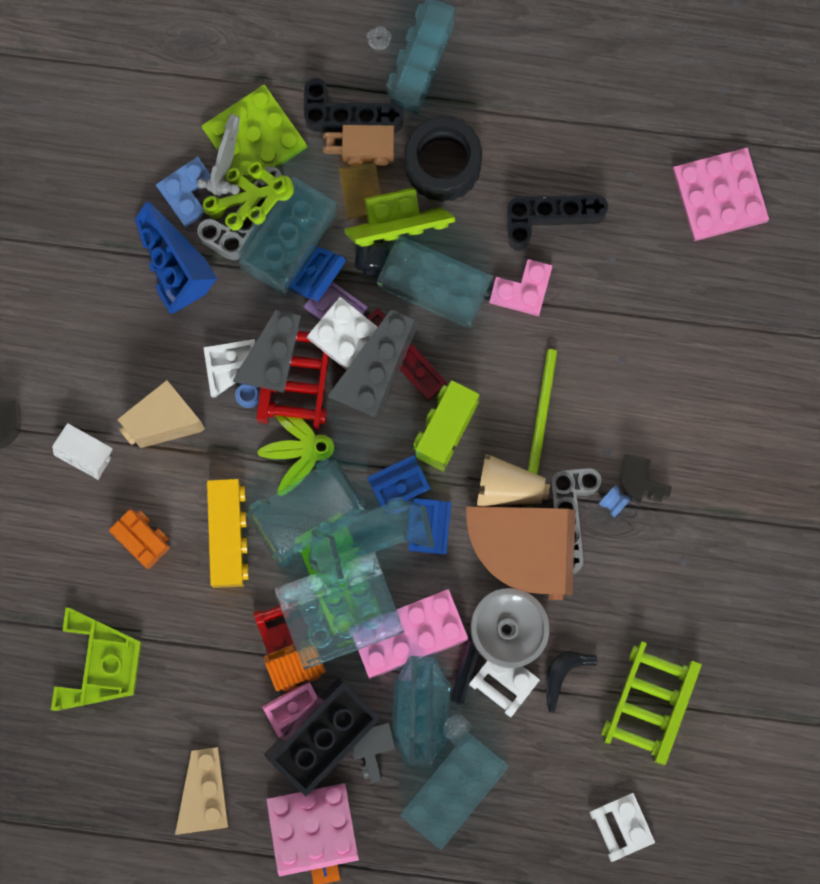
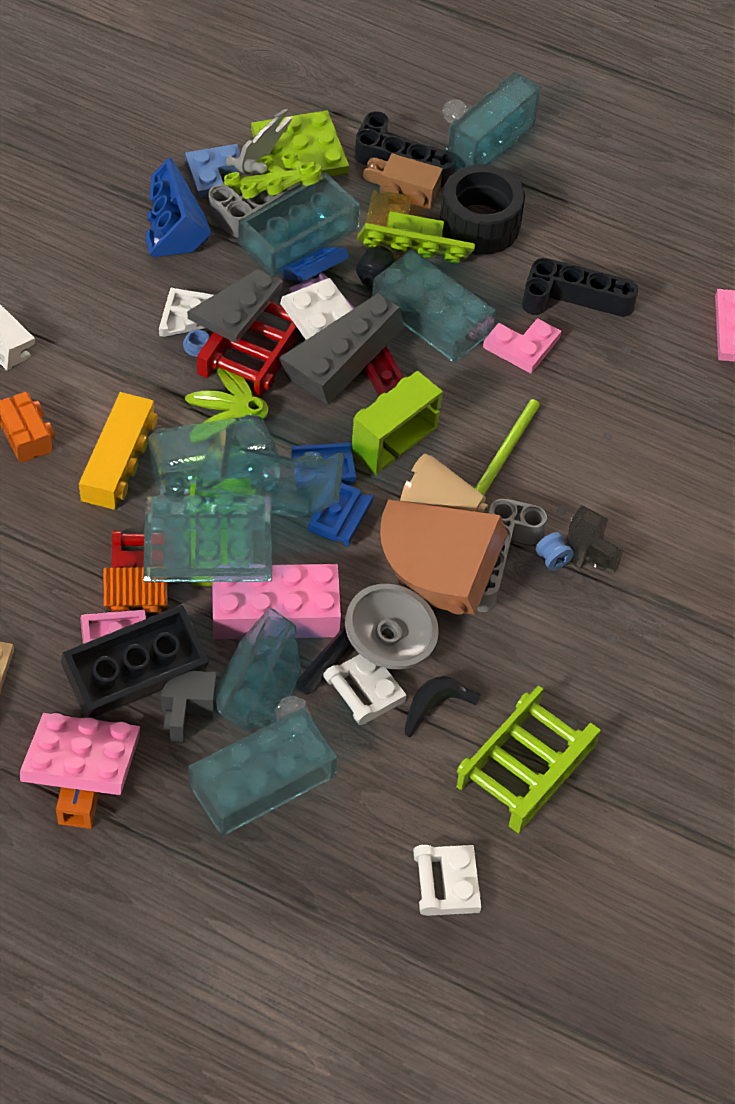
camera: 10 degrees right, 25 degrees down
(159, 418) = (96, 326): tan slope -> none

